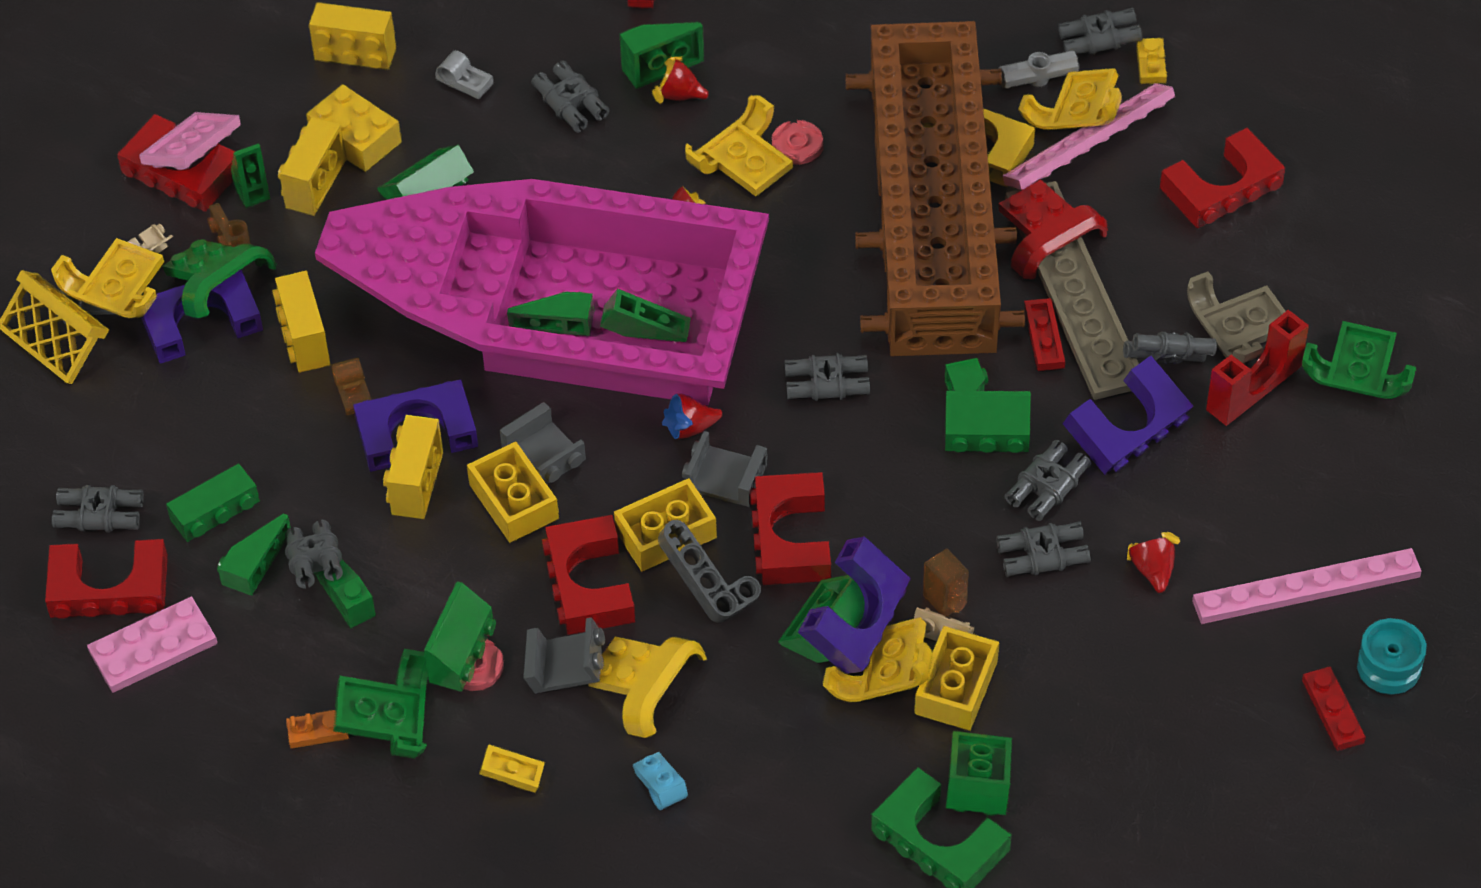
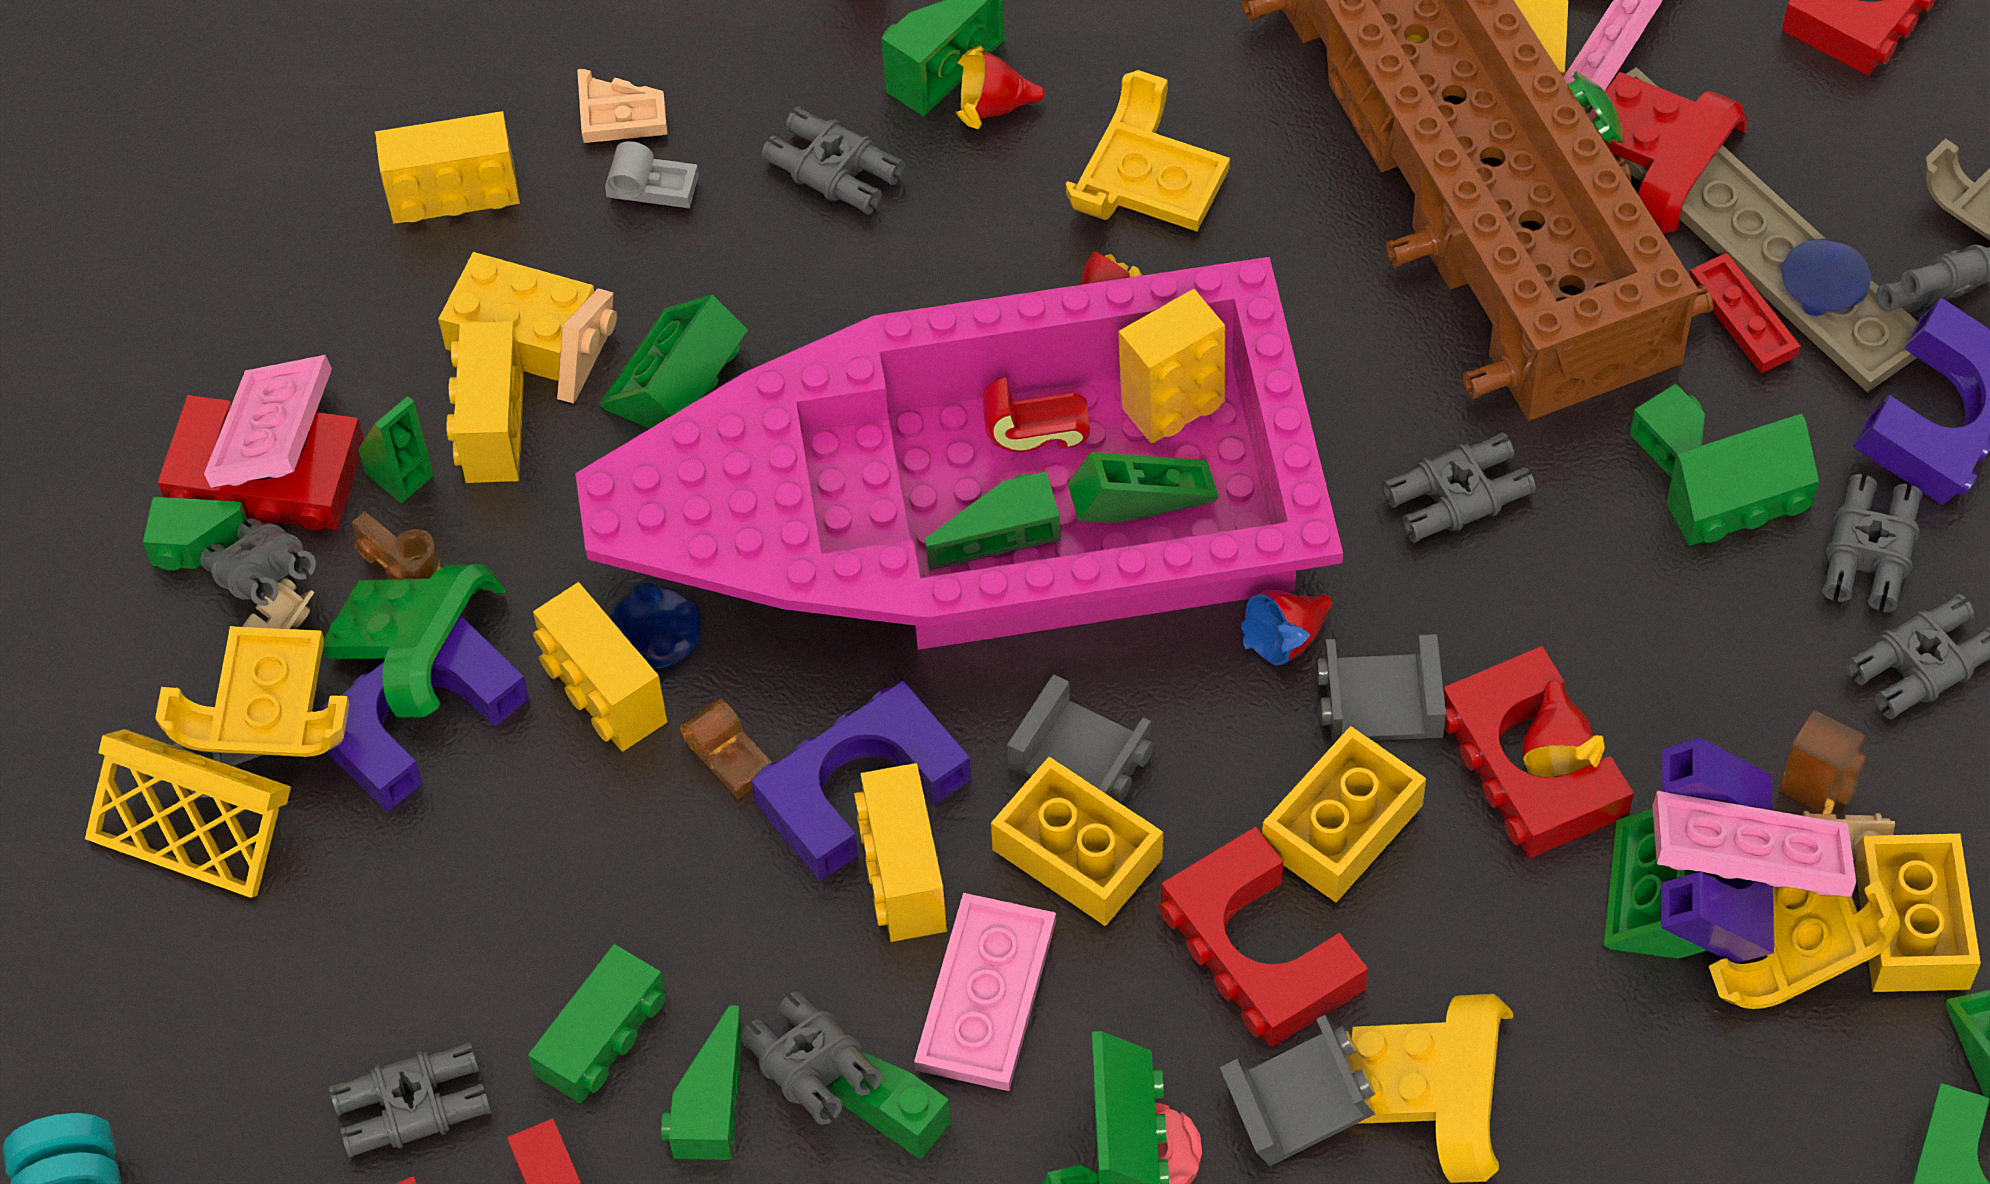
camera: 20 degrees left, 5 degrees up
(125, 186) = (184, 527): none -> green slope
(149, 210) = (257, 561): none -> dark grey pin
(346, 312) = (658, 624): none -> clear blue dish
(381, 151) = (582, 342): none -> light nougat wing
(426, 554) = (985, 992): none -> bright pink plate
(465, 34) = (619, 109): none -> light nougat wing
(602, 267) = (1034, 421): none -> red animal
(687, 257) = (1172, 366): none -> yellow brick
(705, 569) = (1395, 838): dark grey beam -> none
(798, 141) = (1216, 122): coral tile -> none
(805, 522) = (1560, 737): none -> hat
(869, 604) = (1753, 844): none -> bright pink plate
(1006, 191) = (1608, 118): none -> green dish
(1099, 327) = (1826, 276): none -> clear blue dish

